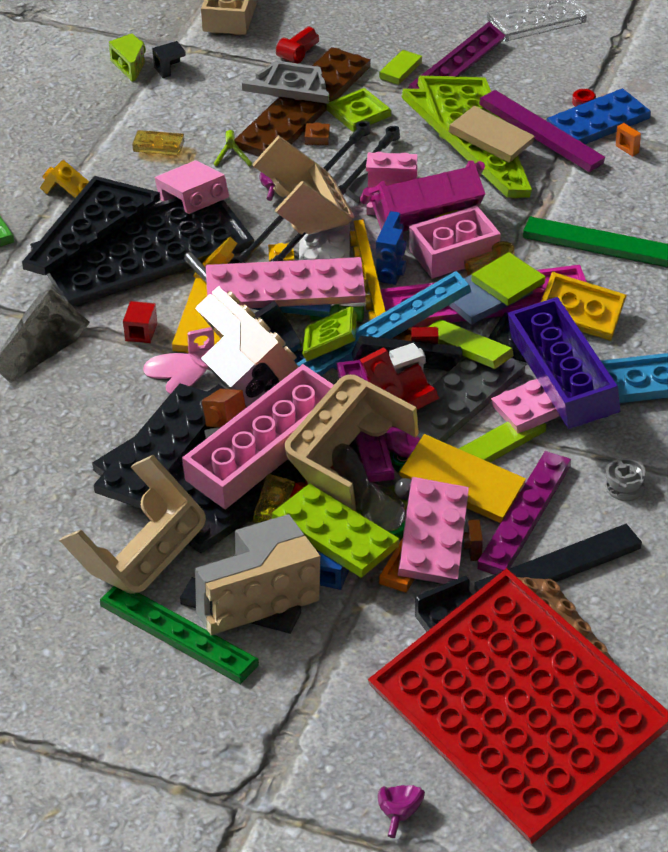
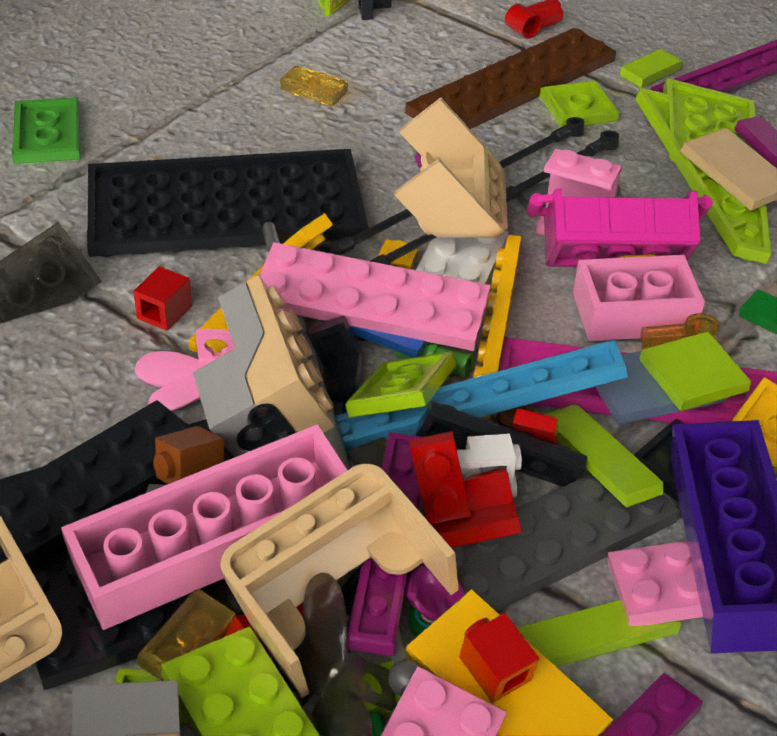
camera: 15 degrees right, 0 degrees up
(66, 177) = (182, 103): yellow bracket -> none
(89, 218) = (177, 148): black wing -> none
(193, 184) = (323, 143): bright pink panel -> none
(230, 144) = (400, 107): lime plant -> none
(289, 81) = (502, 50): light grey wing -> none
(317, 134) = (514, 120): dark orange plate -> none
(390, 250) = (540, 286): blue plate -> none
(453, 460) = (498, 656): none -> red brick

